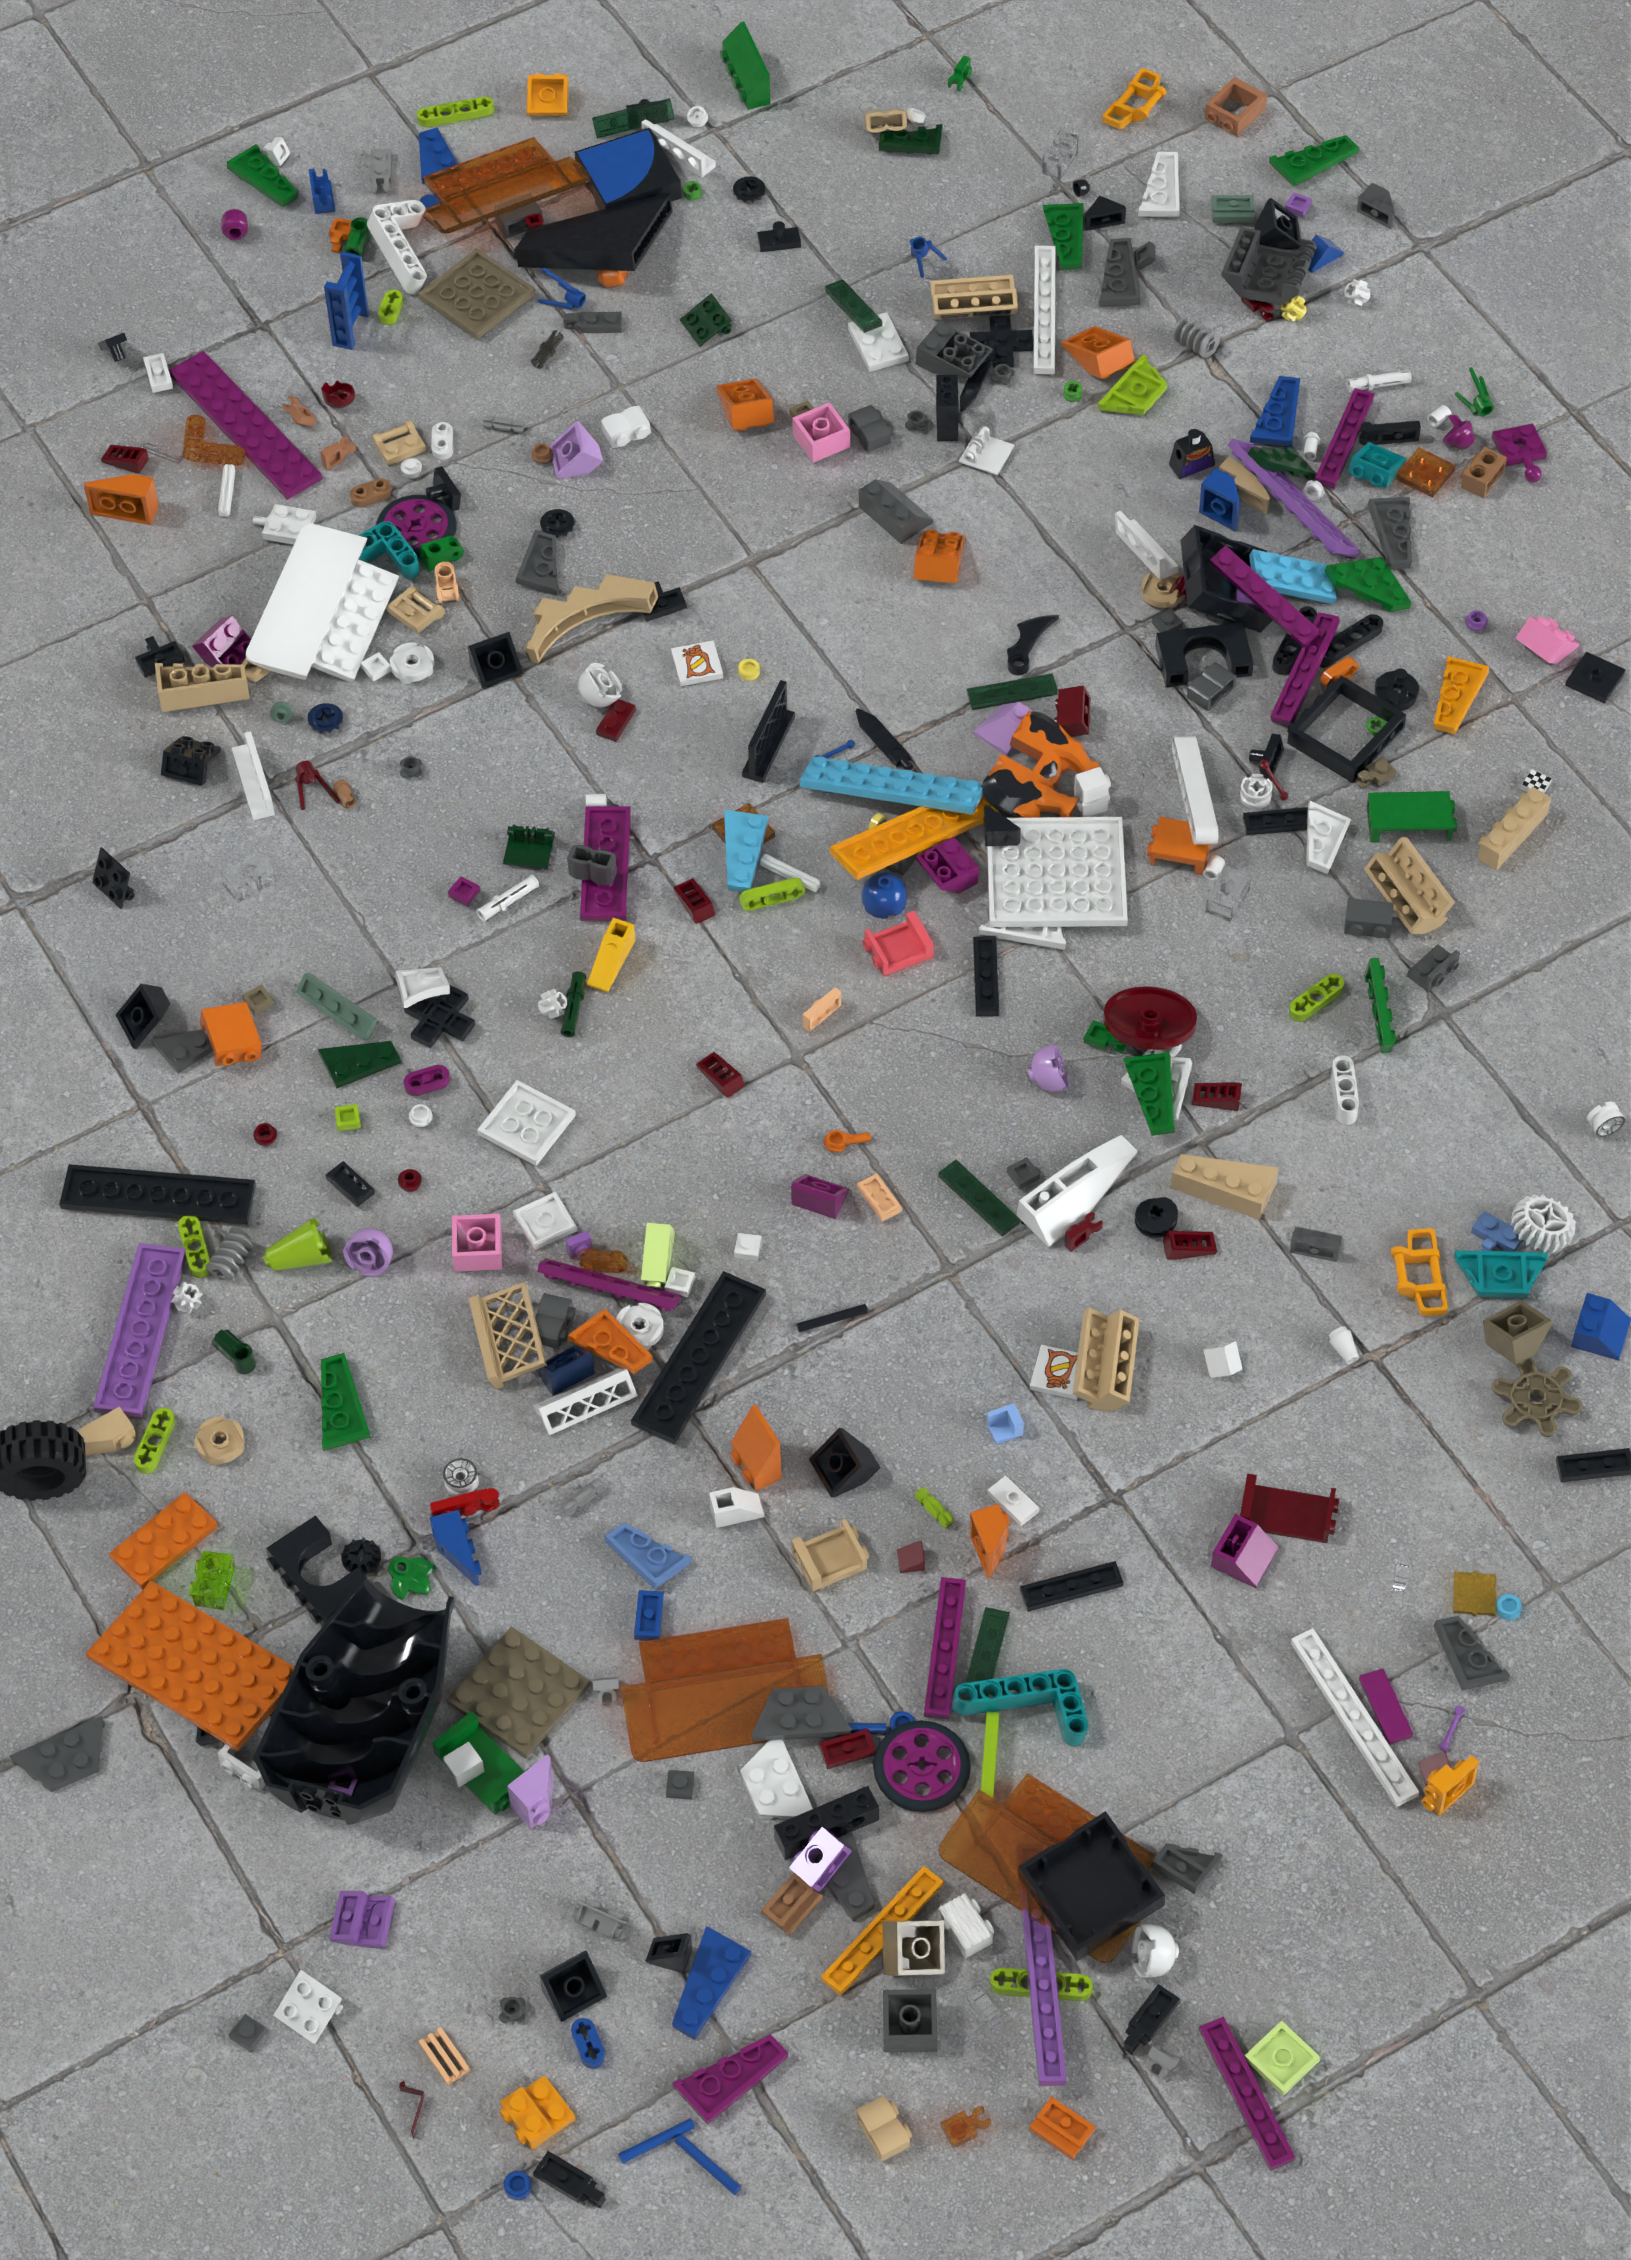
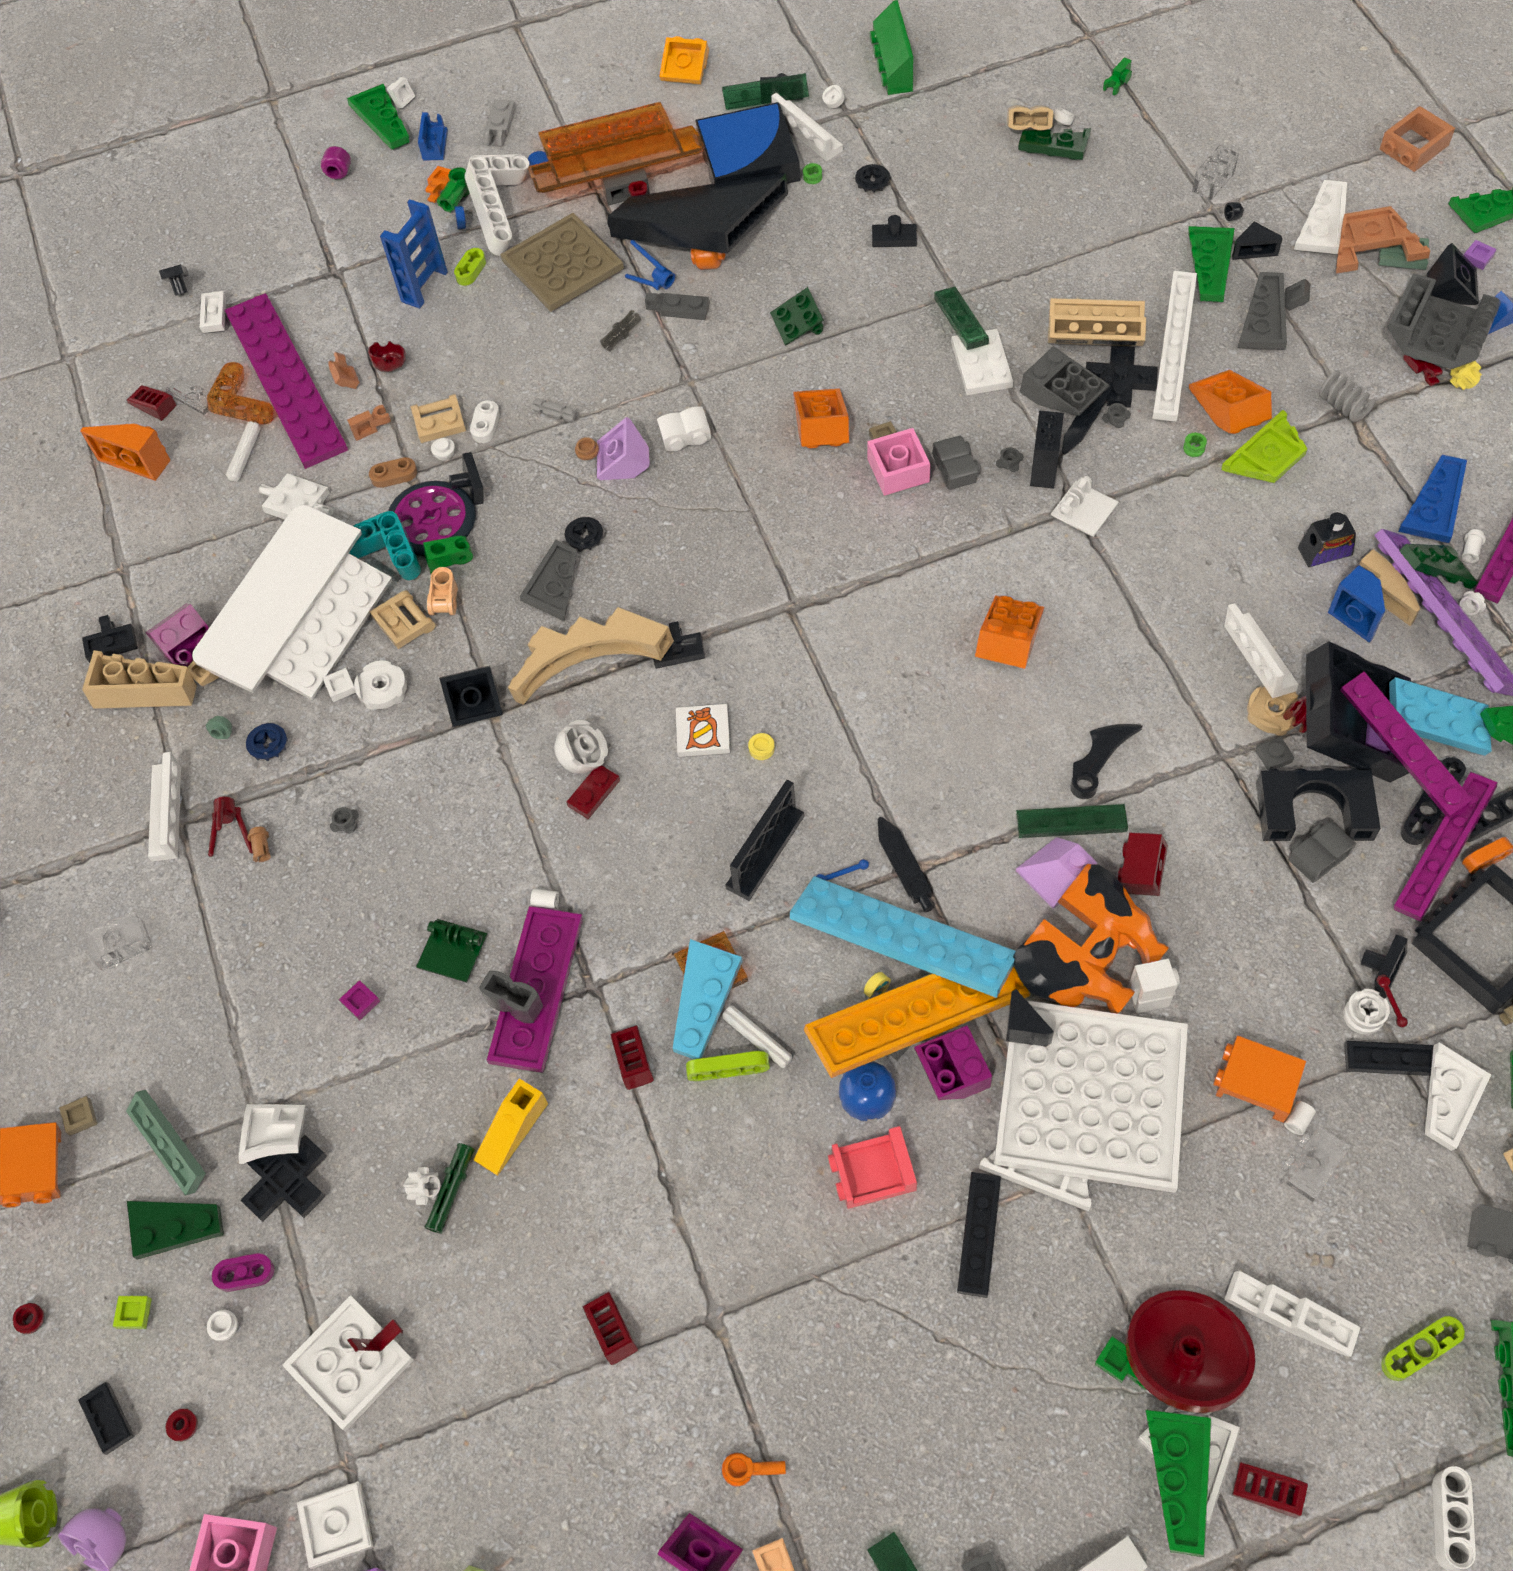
camera: 15 degrees right, 5 degrees up
(188, 760) = (98, 770): black bracket -> none
(369, 263) = (460, 217): none -> blue tile
(434, 153) = (556, 108): blue wing -> none
(454, 108) = (613, 68): lime beam -> none
(526, 885) = (377, 1033): white pin -> none
(552, 1099) = (380, 1341): none -> dark red piece
(821, 1009) = (757, 1252): light nougat plate -> none
(892, 510) = (965, 565): dark grey slope -> none
(920, 248) = (1044, 261): blue plant -> none
(1048, 1069) = (1041, 1410): lavender cylinder -> none
(1152, 94) = (1311, 111): light orange bar -> none
(1195, 790) = (1288, 1007): white beam -> none
(1203, 193) = (1375, 230): none -> nougat wing
(1225, 991) = (1293, 1314): none -> white slope

